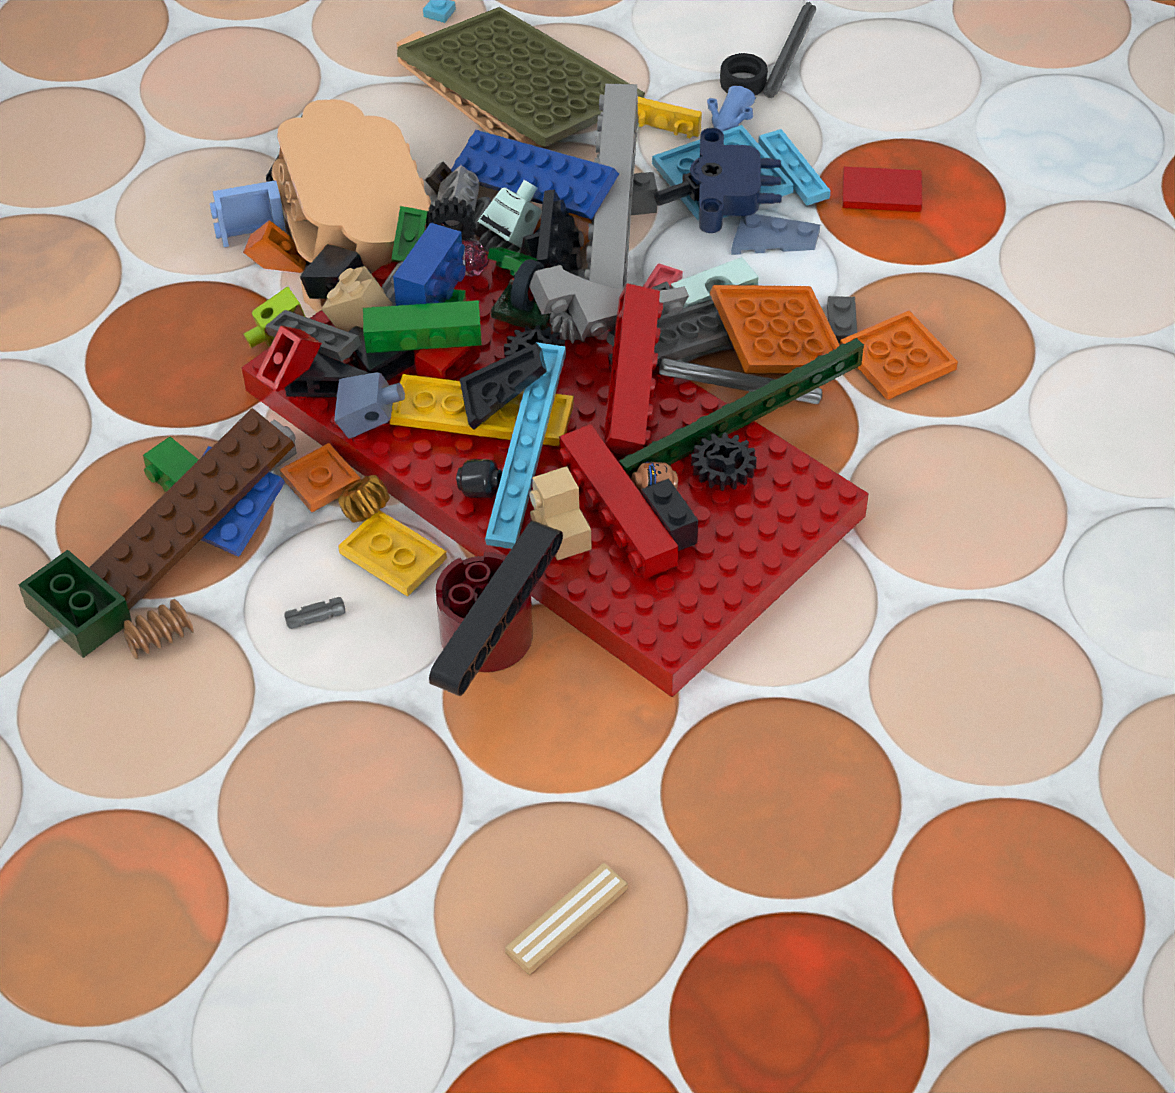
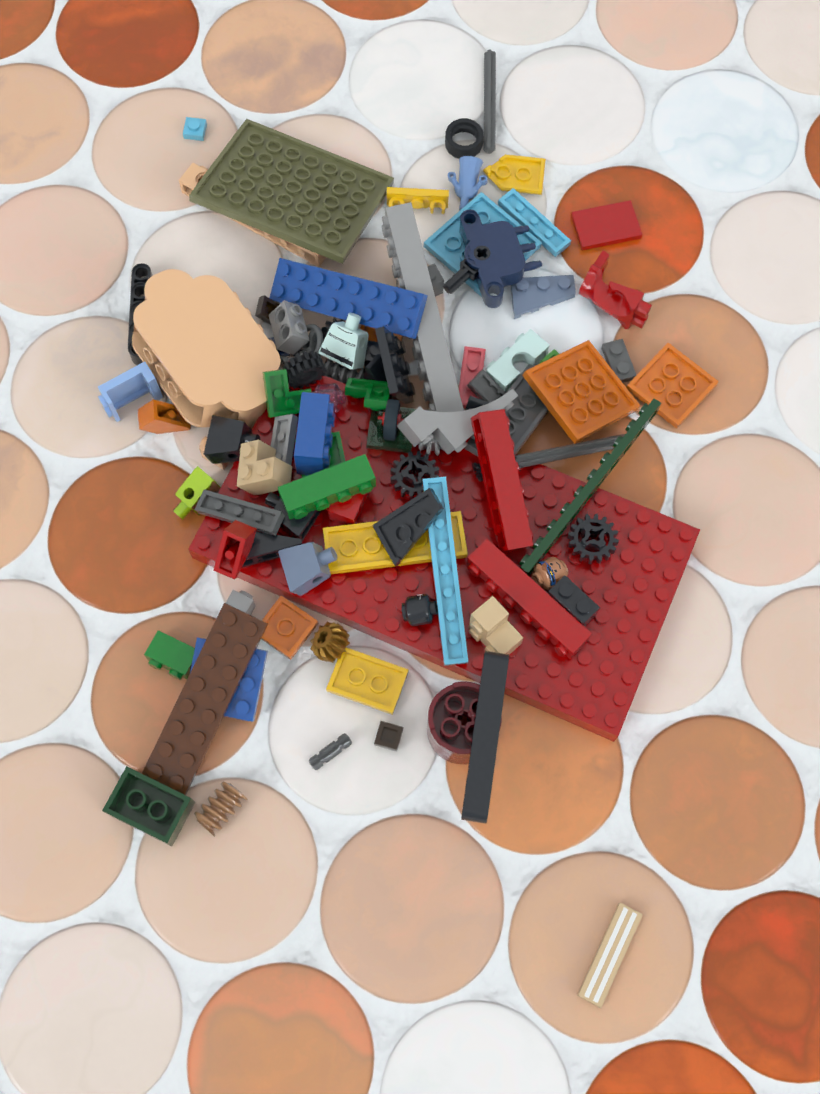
camera: 20 degrees left, 20 degrees up
(391, 613) = (388, 736): none -> dark brown plate
(797, 120) = (518, 172): none -> yellow tile
(867, 258) = (615, 299): none -> red hips

